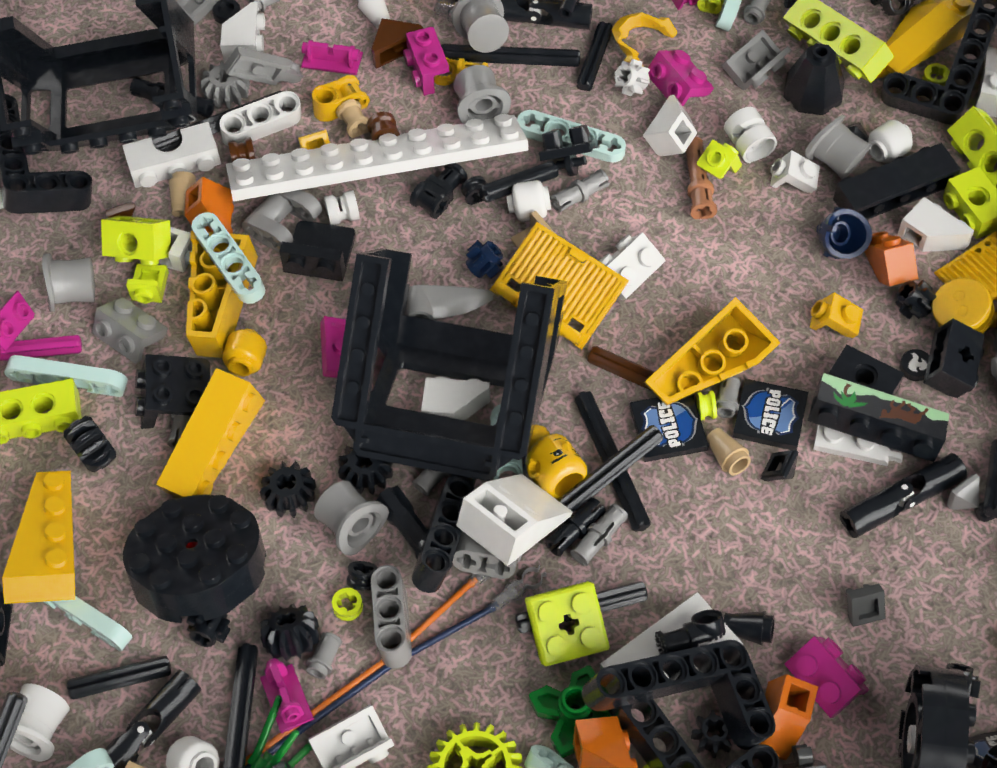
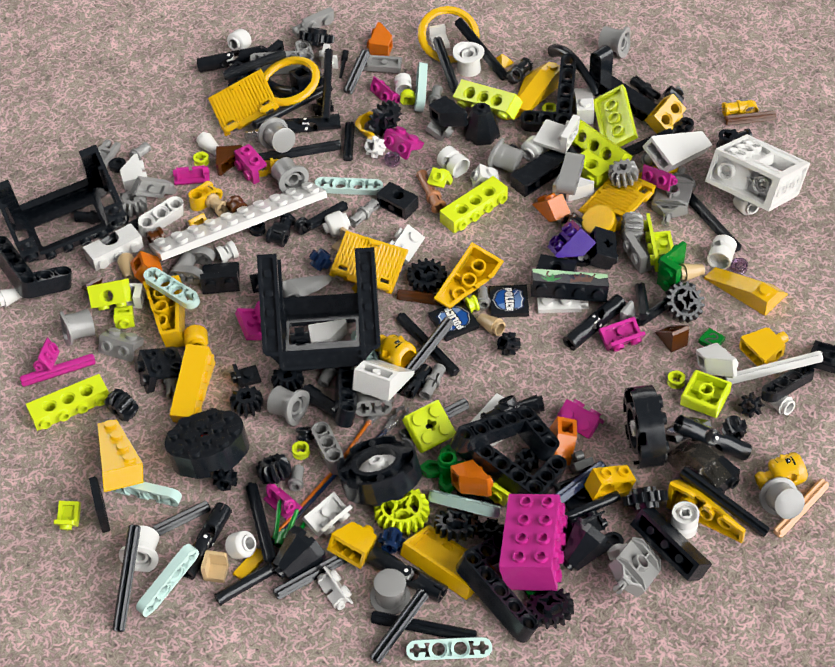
camera: 15 degrees left, 10 degrees down
(86, 377) = (67, 377): light aqua beam -> none
(302, 440) = (245, 376): none -> black bracket
(355, 40) = (198, 156): none -> neon yellow bush
(404, 184) = (260, 231): none -> black bush
(407, 395) = (300, 336): none -> black gear
(455, 693) = (379, 470): none -> black piece
(580, 143) = (342, 193): black hips -> none
(640, 183) = (397, 200): none -> black brick
(647, 101) = (389, 156): none -> clear purple bush
(647, 332) = (426, 275): none -> black gear
(661, 30) = (384, 117): none -> black gear
(671, 129) = (406, 169): white slope -> none
(746, 498) = (508, 343): none -> black gear
(762, 221) = (473, 204): none -> neon yellow brick
(764, 48) = (448, 113): none -> black slope
(787, 459) = (526, 321): black slope -> none
(837, 314) = (530, 241): yellow bracket -> none
(844, 234) = (522, 200): dark blue helmet -> none
(865, 604) = (590, 379): dark grey tile -> none
(904, 335) = (571, 241): none -> dark purple slope
(934, 131) = (556, 135): none -> white bracket
(937, 208) = (570, 173): none -> light grey beam
(942, 531) = (620, 334): none -> dark pink bracket

